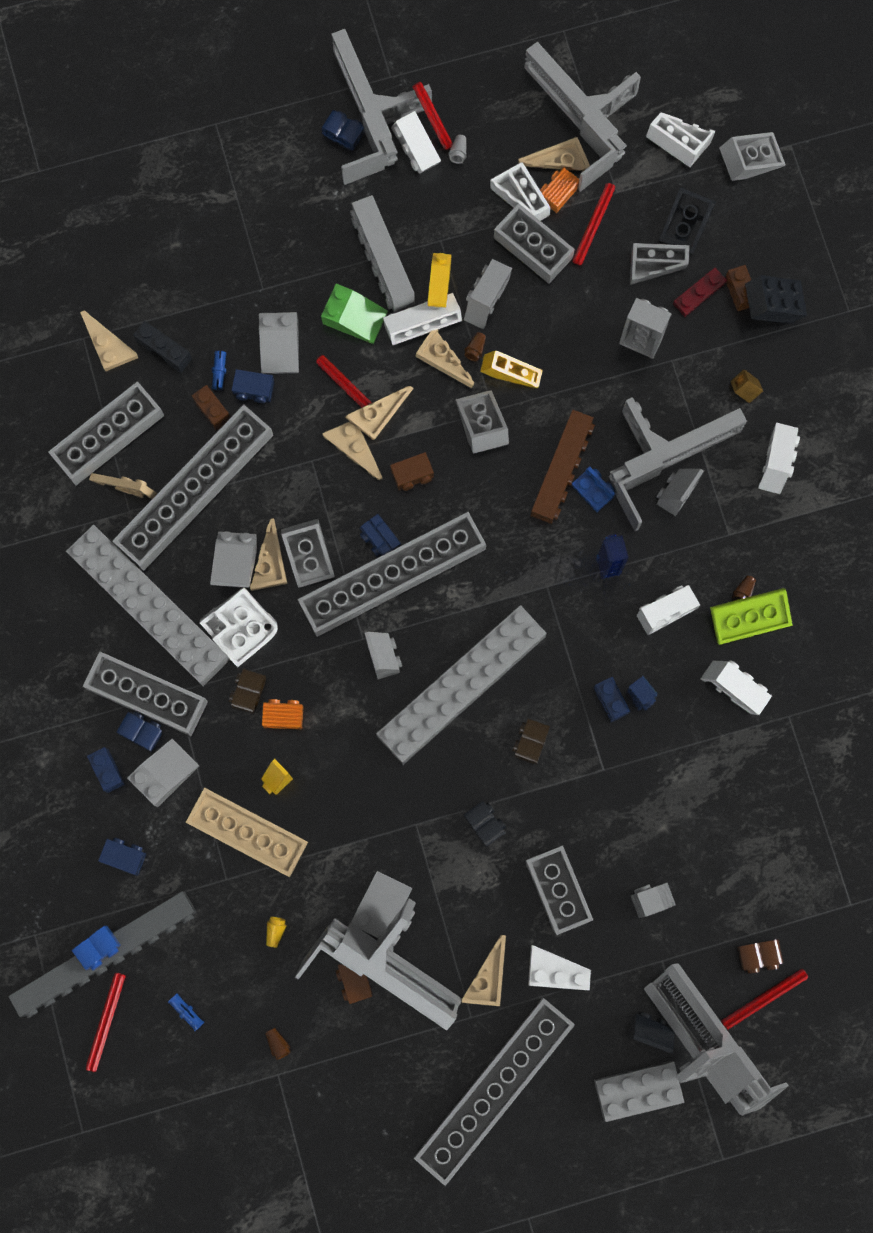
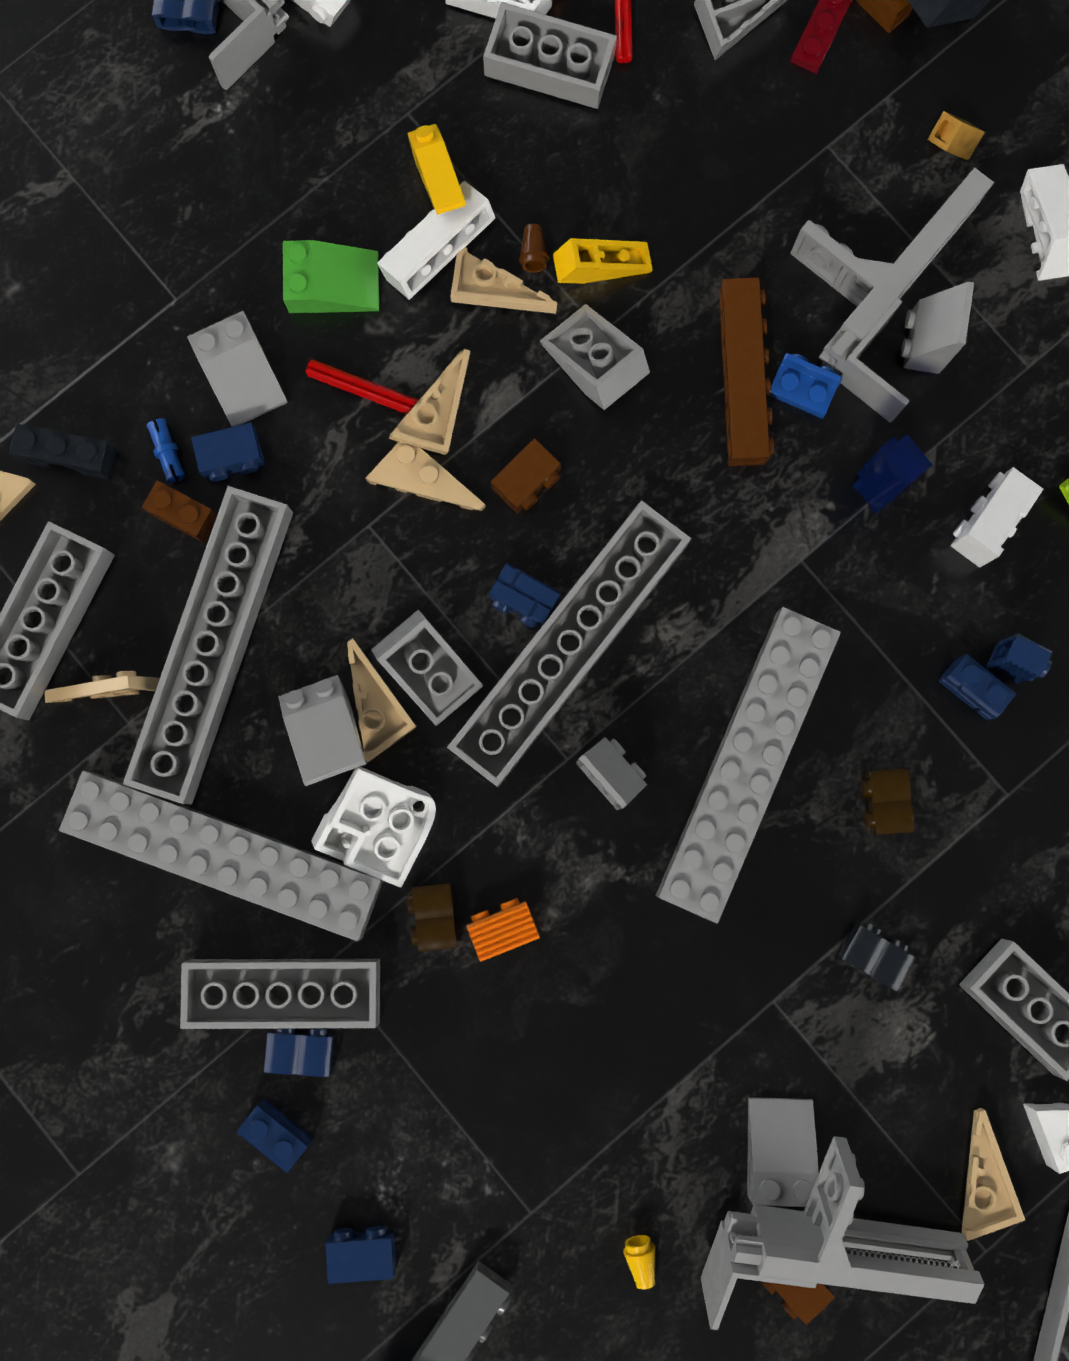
camera: 25 degrees left, 5 degrees up
(163, 772) = (363, 1099): light grey slope -> none
(247, 832) = (530, 1131): tan plate -> none
(275, 778) = (539, 1032): yellow slope -> none
(382, 254) = (332, 167): light grey brick -> none
(486, 293) = (514, 160): light grey wedge -> none
(645, 327) = (780, 105): light grey brick -> none

